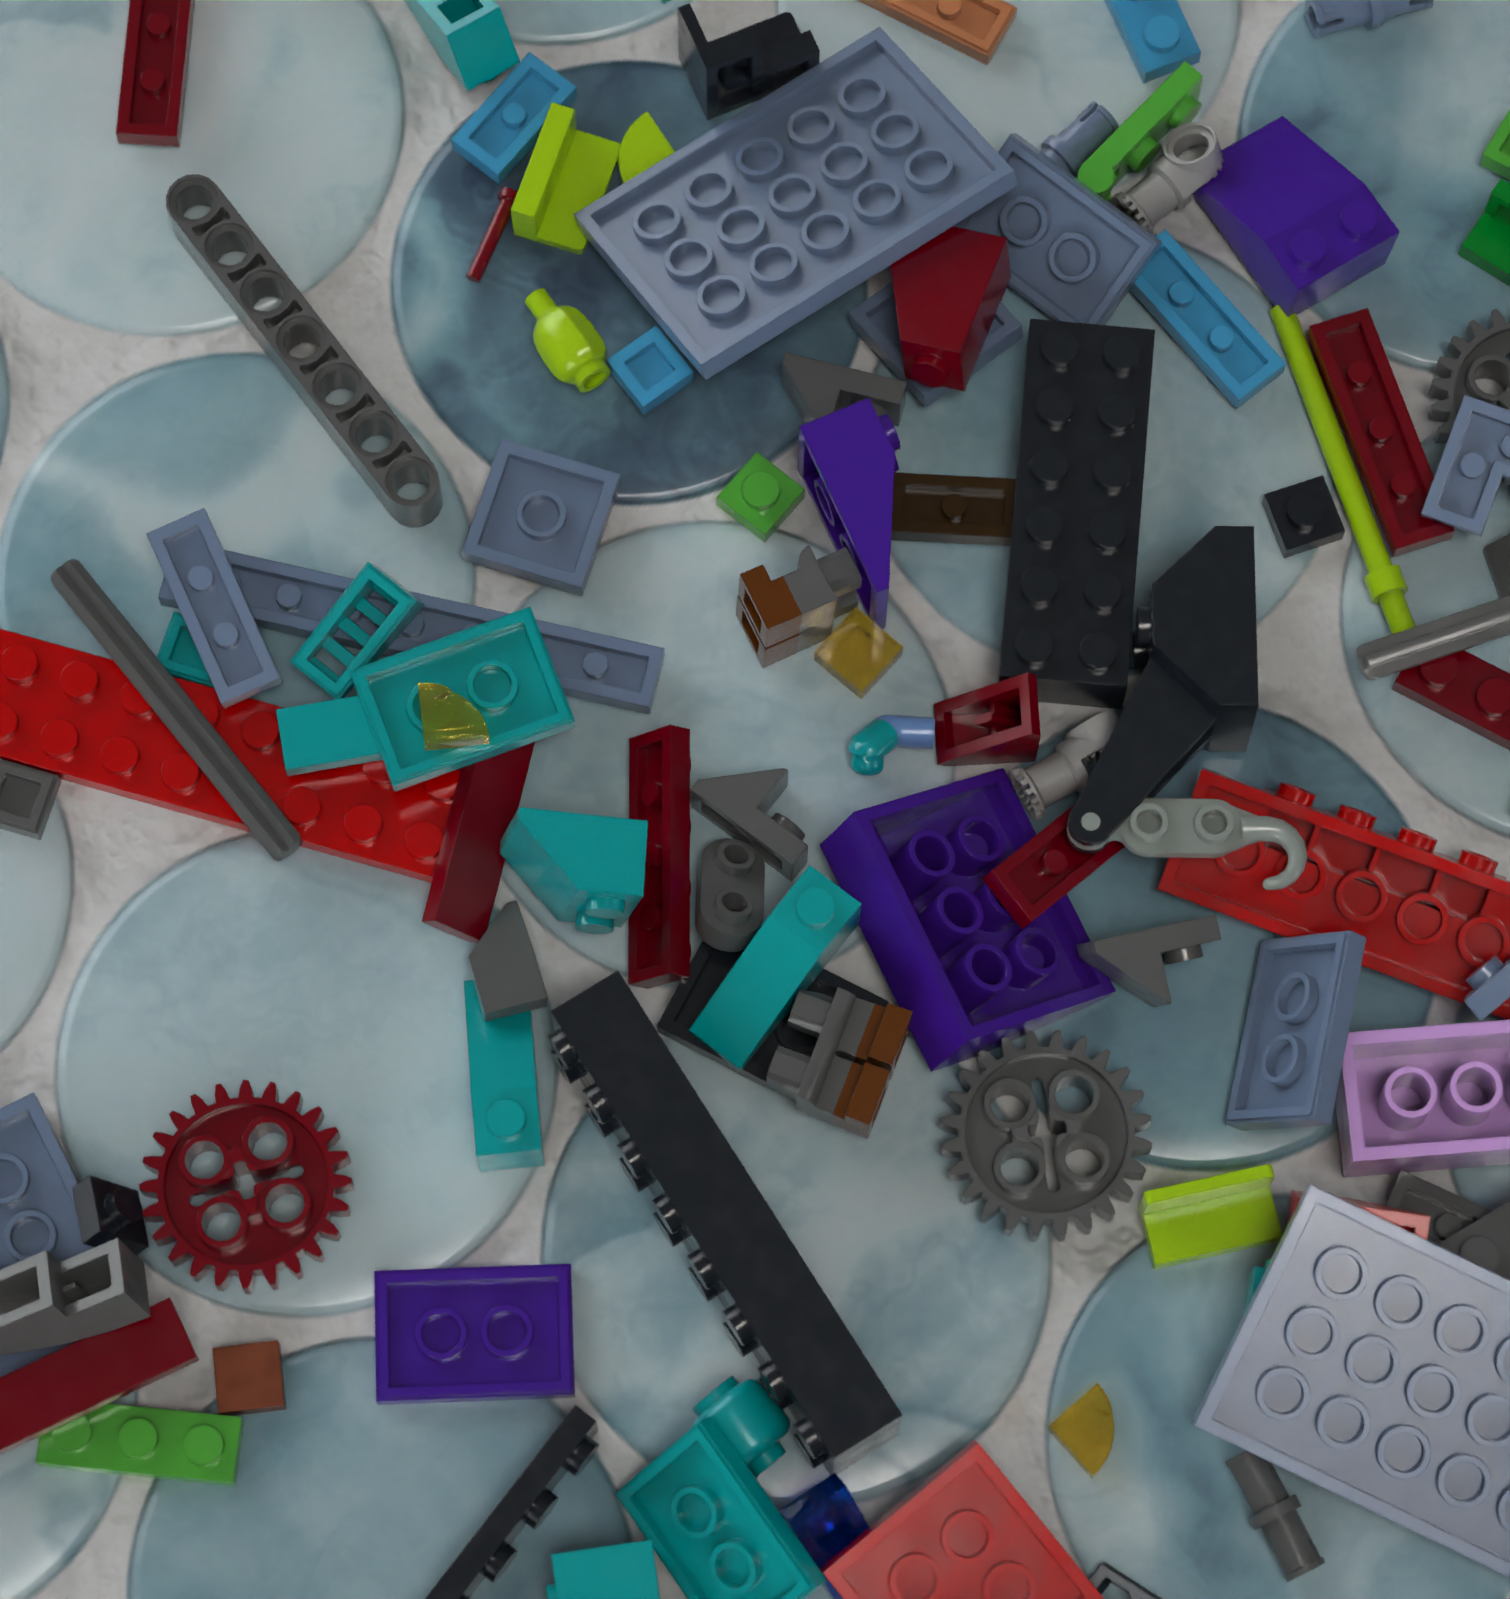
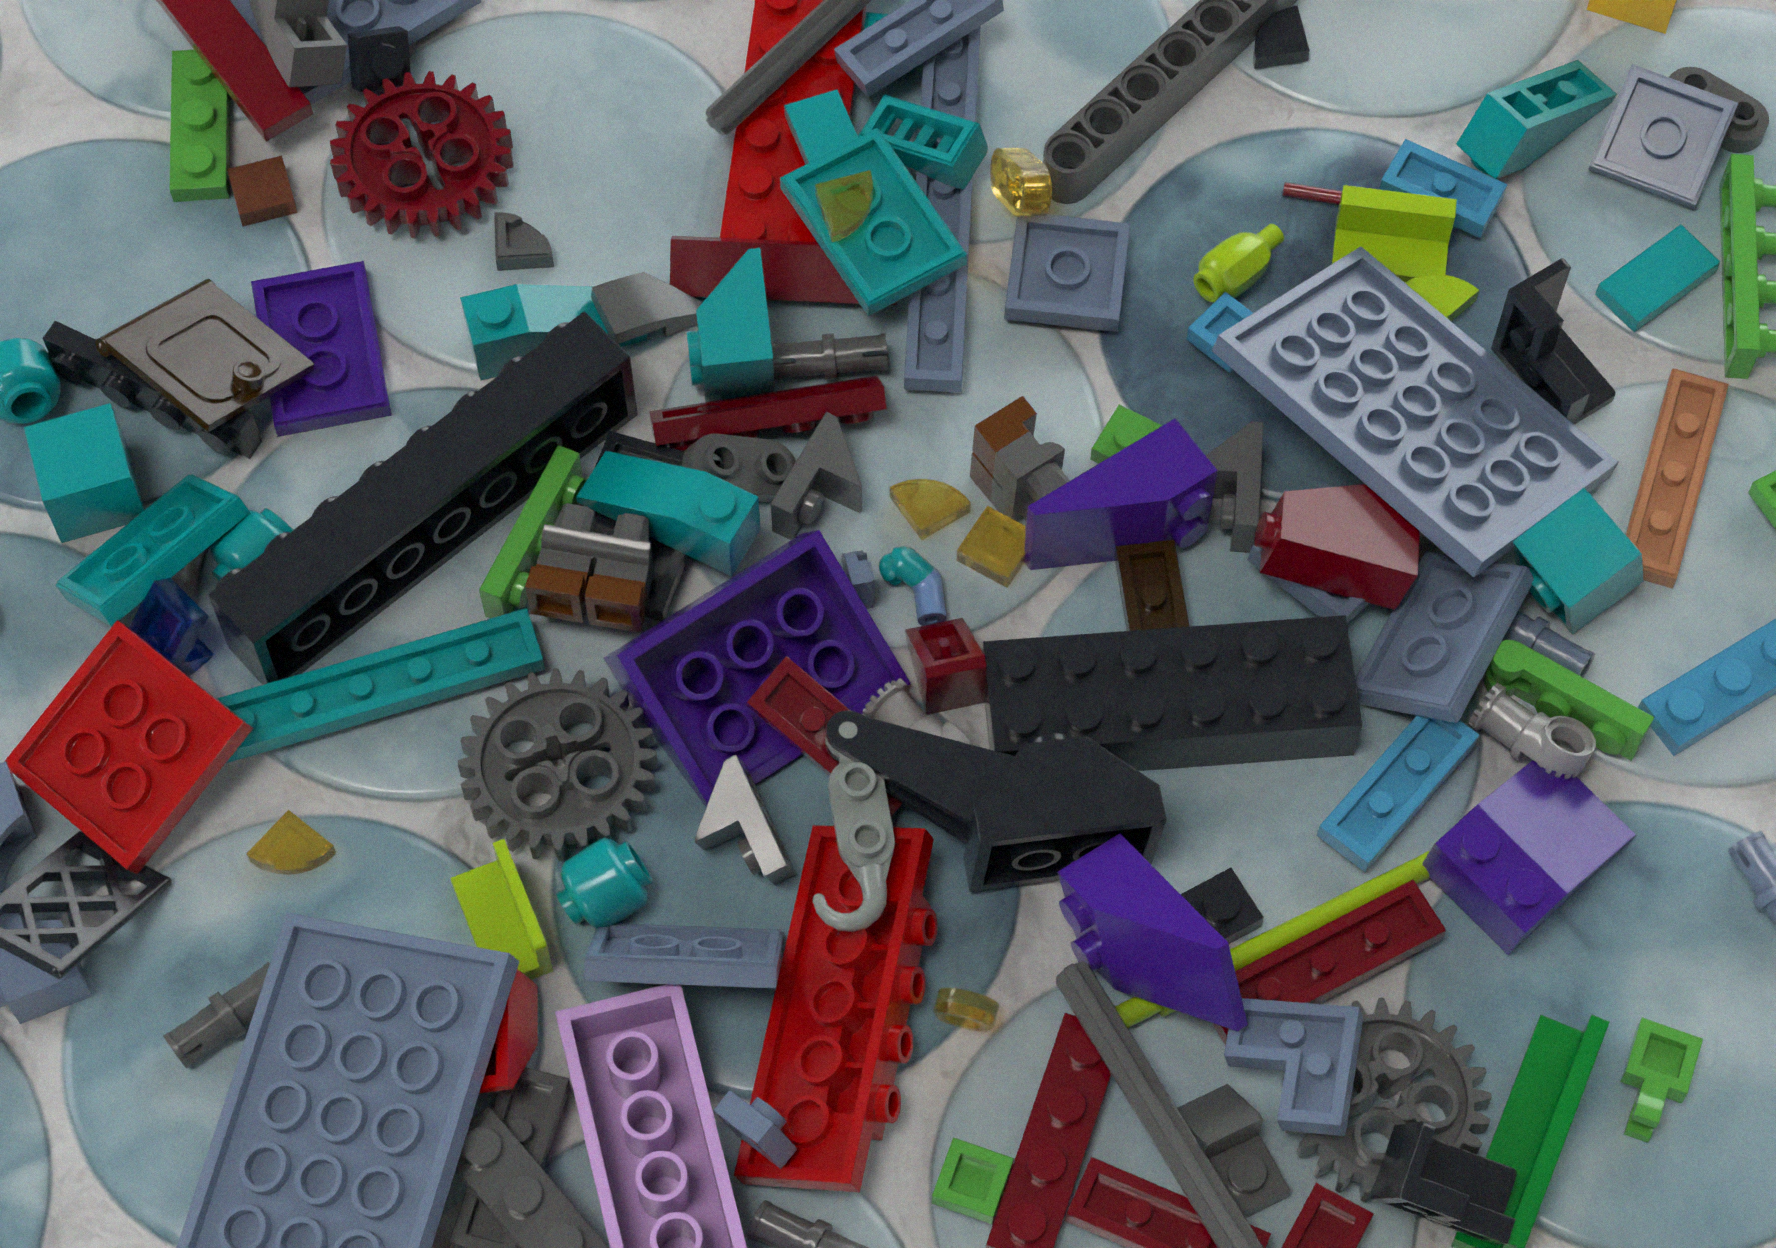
camera: 80 degrees right, 10 degrees down
(285, 237) = (1281, 40): none -> black tile
(379, 1097) = (519, 244): none -> dark grey tile
(431, 539) = (1020, 181): none -> clear yellow beam
(473, 1461) = (200, 346): none -> container
(601, 773) = (830, 356): none -> dark grey pin
(772, 1125) = (507, 577): none -> bright green plate
(797, 713) = (928, 504): none -> clear yellow tile
(884, 789) = (860, 575): none -> sand blue tile
(916, 1302) = (386, 682): none -> teal plate
(1002, 84) = (1578, 561): none -> teal head
(1192, 1106) = (604, 884): none -> teal head
(1357, 575) = (1148, 936): none -> dark purple slope
(1380, 774) = (966, 1009): none -> clear yellow tile

